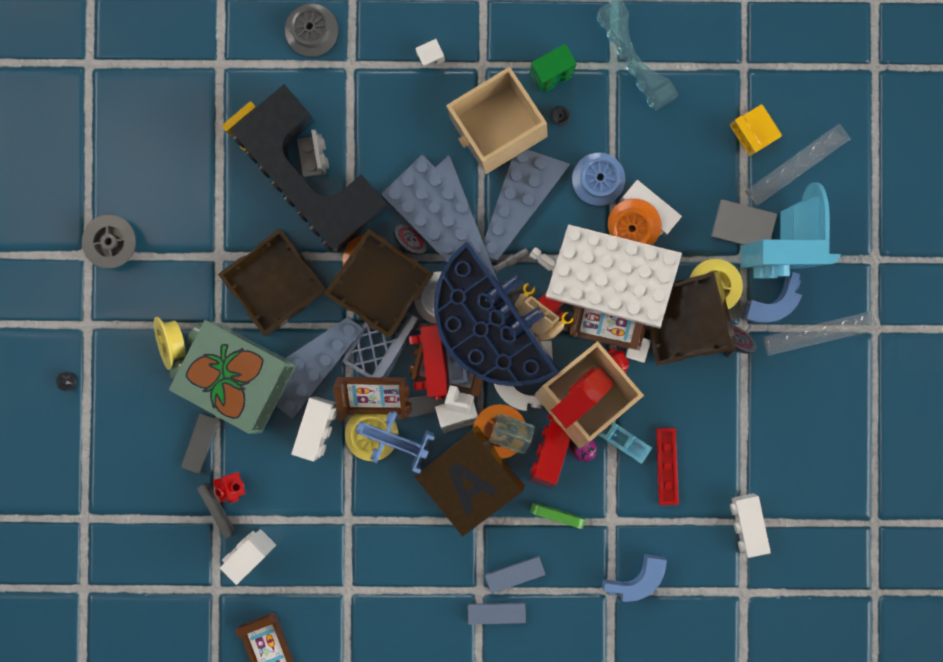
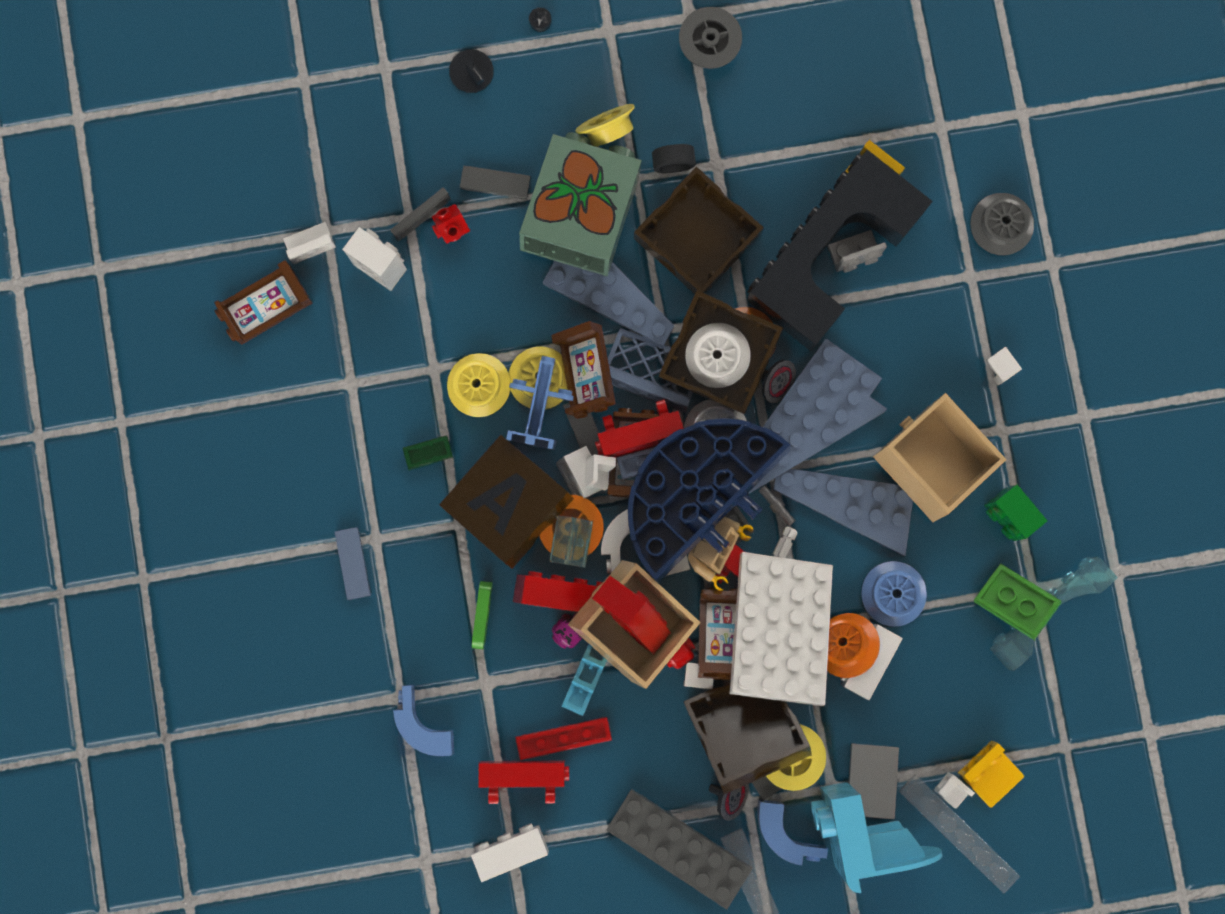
camera: 80 degrees right, 5 degrees down
(100, 446) = (471, 71): none -> black shield
(207, 291) = (673, 158): none -> black tyre
(223, 607) = (309, 243): none -> white panel
(314, 428) = (536, 309): white brick -> none
(377, 477) = (490, 394): none -> light yellow piece
(382, 272) = (721, 371): none -> white piece
(417, 537) = (427, 452): none -> dark green plate
(515, 574) = (402, 577): sand blue tile -> none
(560, 115) = (961, 533): black tile -> none
(623, 81) = (1017, 601): none -> bright green tile
(690, 505) = (522, 774): none -> red brick
(762, 163) = (953, 790): none -> white panel
(771, 389) = (679, 849): none -> dark grey plate

